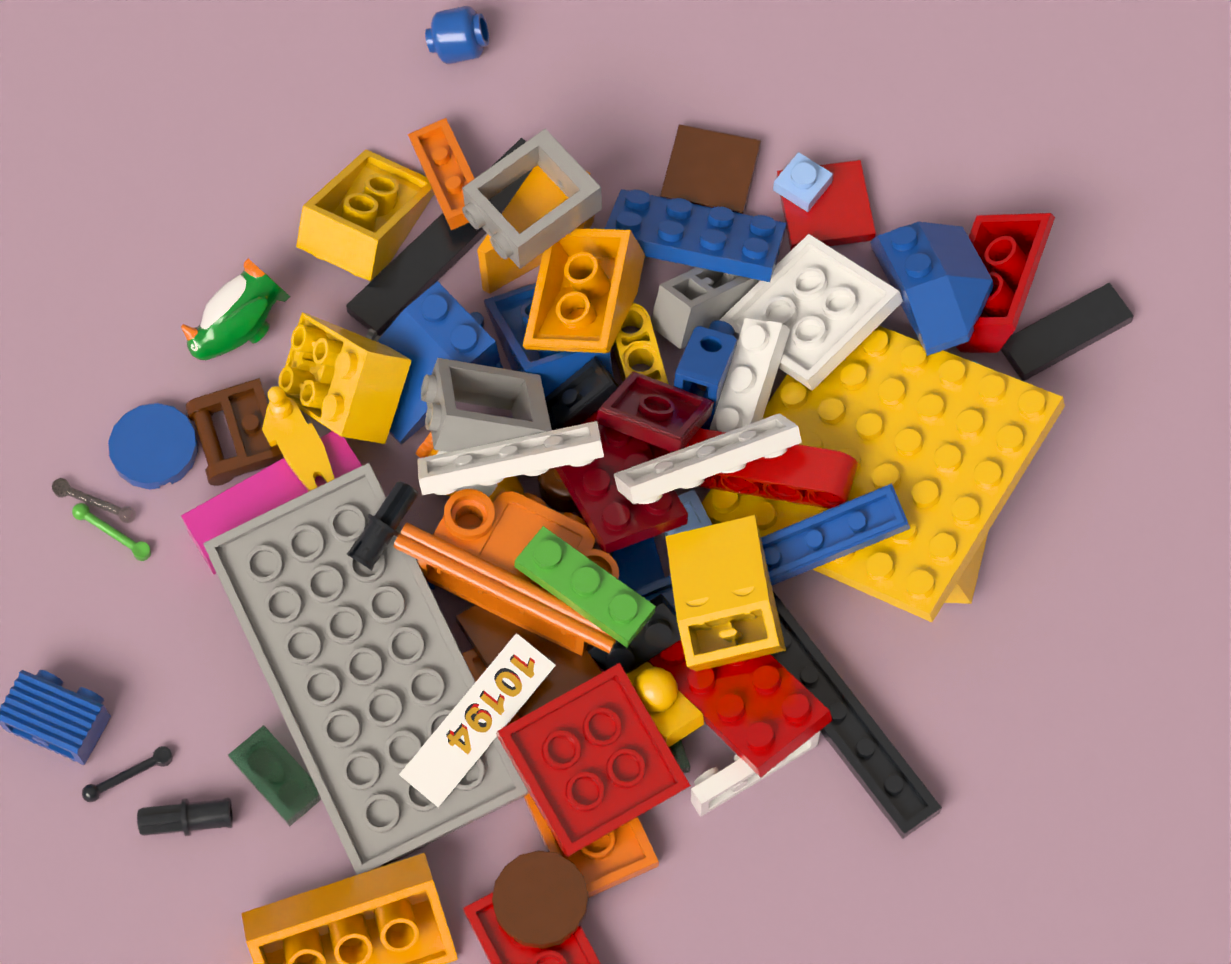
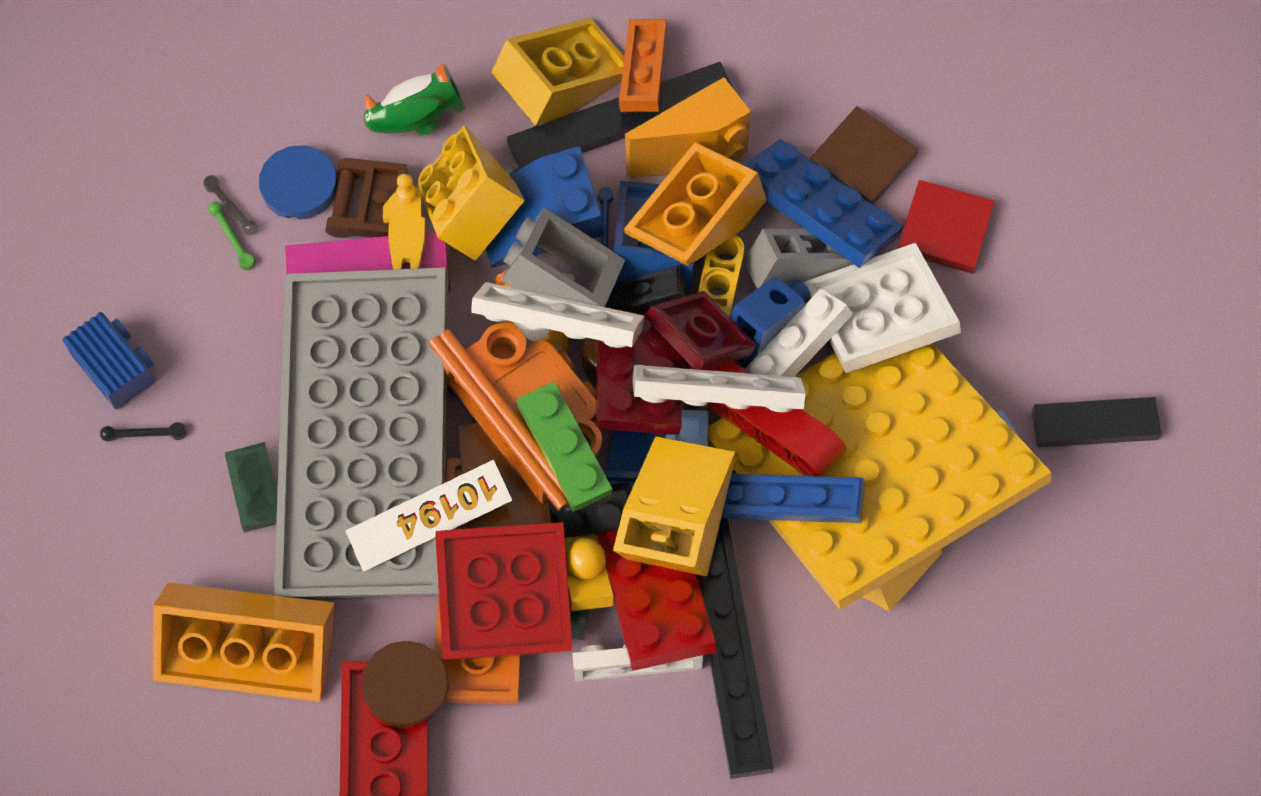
camera: 25 degrees right, 0 degrees up
(185, 817) = (168, 487): black axle -> none
(383, 525) = (428, 322): black axle -> none
(546, 152) = (695, 140): light grey window -> none
(802, 182) = (934, 197): light blue plate -> none
(938, 280) = (999, 328): blue wedge -> none
(1011, 253) = (1048, 348): red slope -> none

